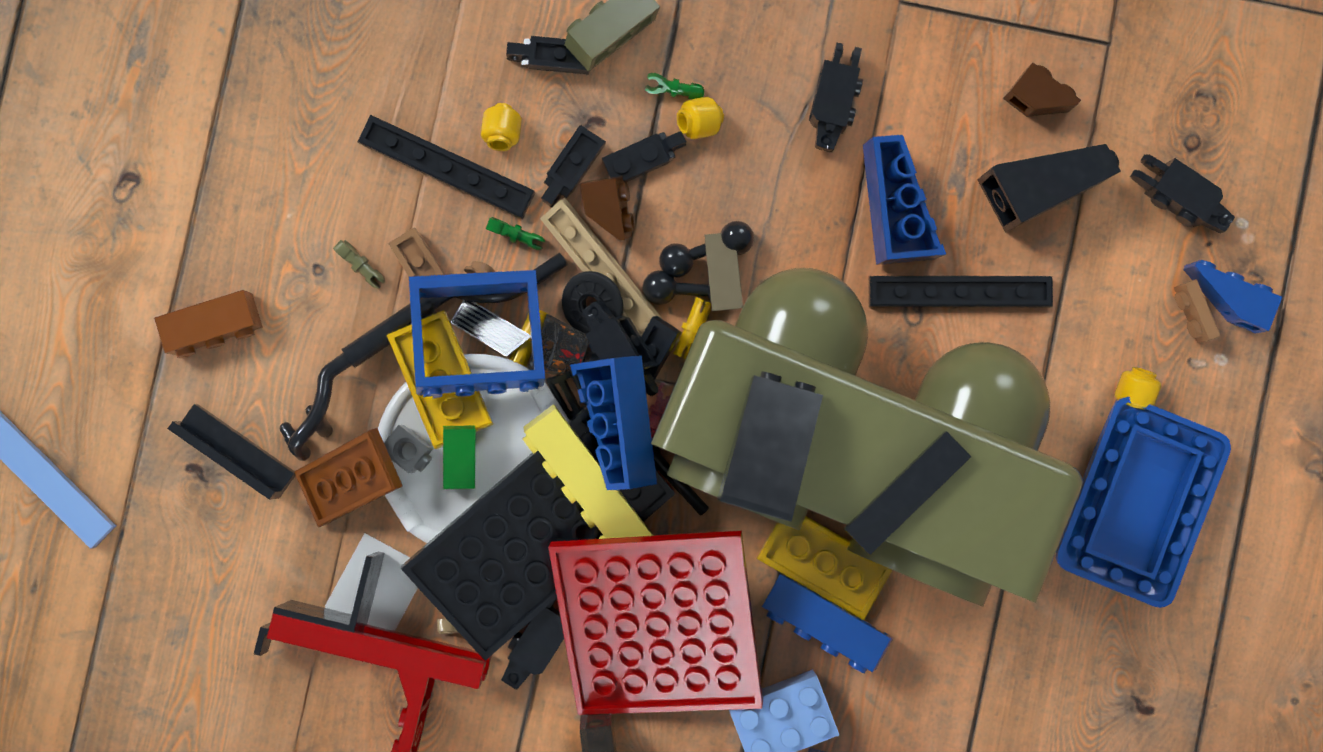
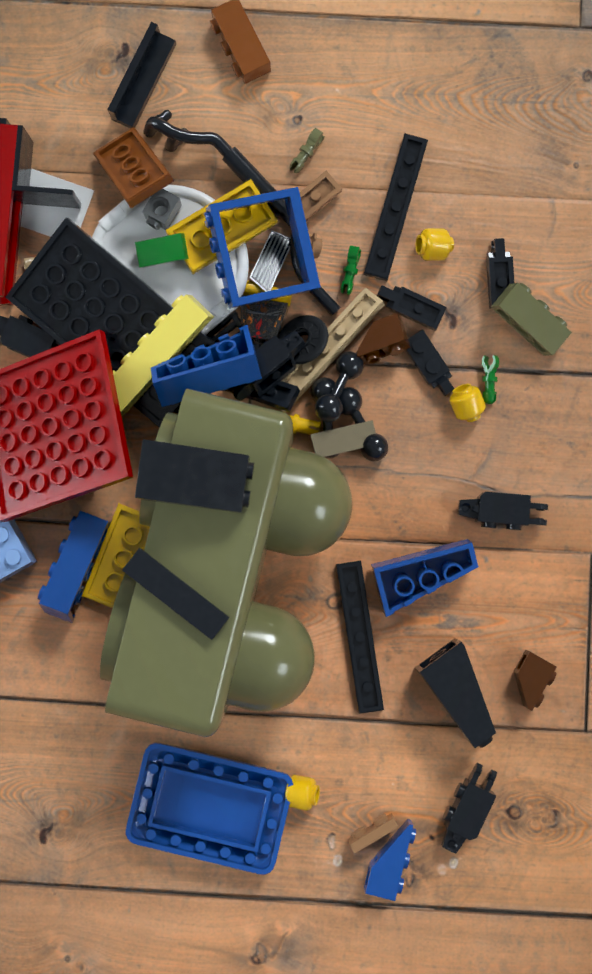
camera: 85 degrees right, 0 degrees up
(682, 282) = (329, 406): none -> black piece

